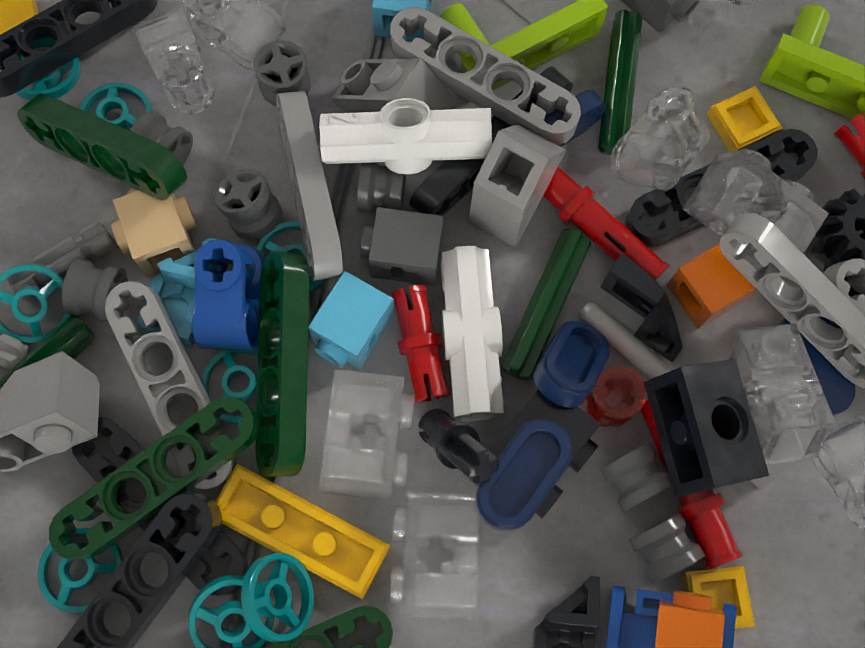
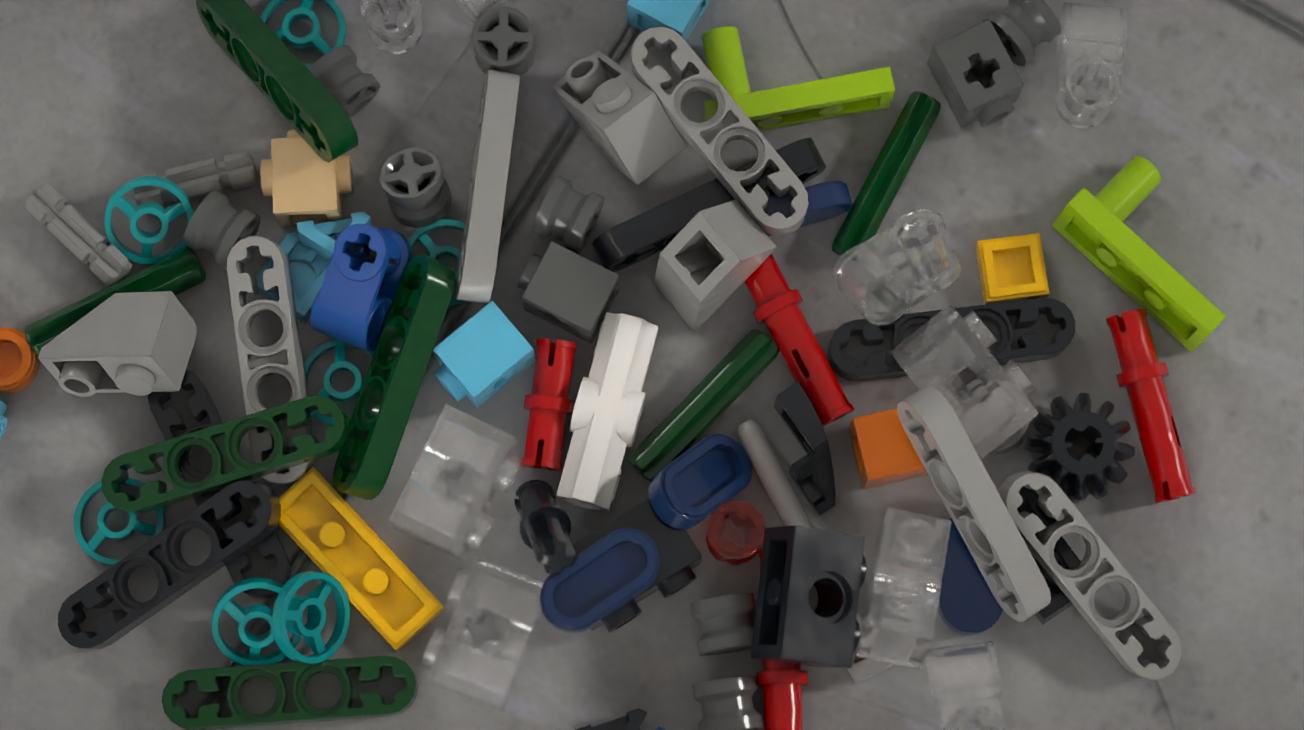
camera: 20 degrees right, 5 degrees up
(405, 135) = (607, 174): white piece -> none

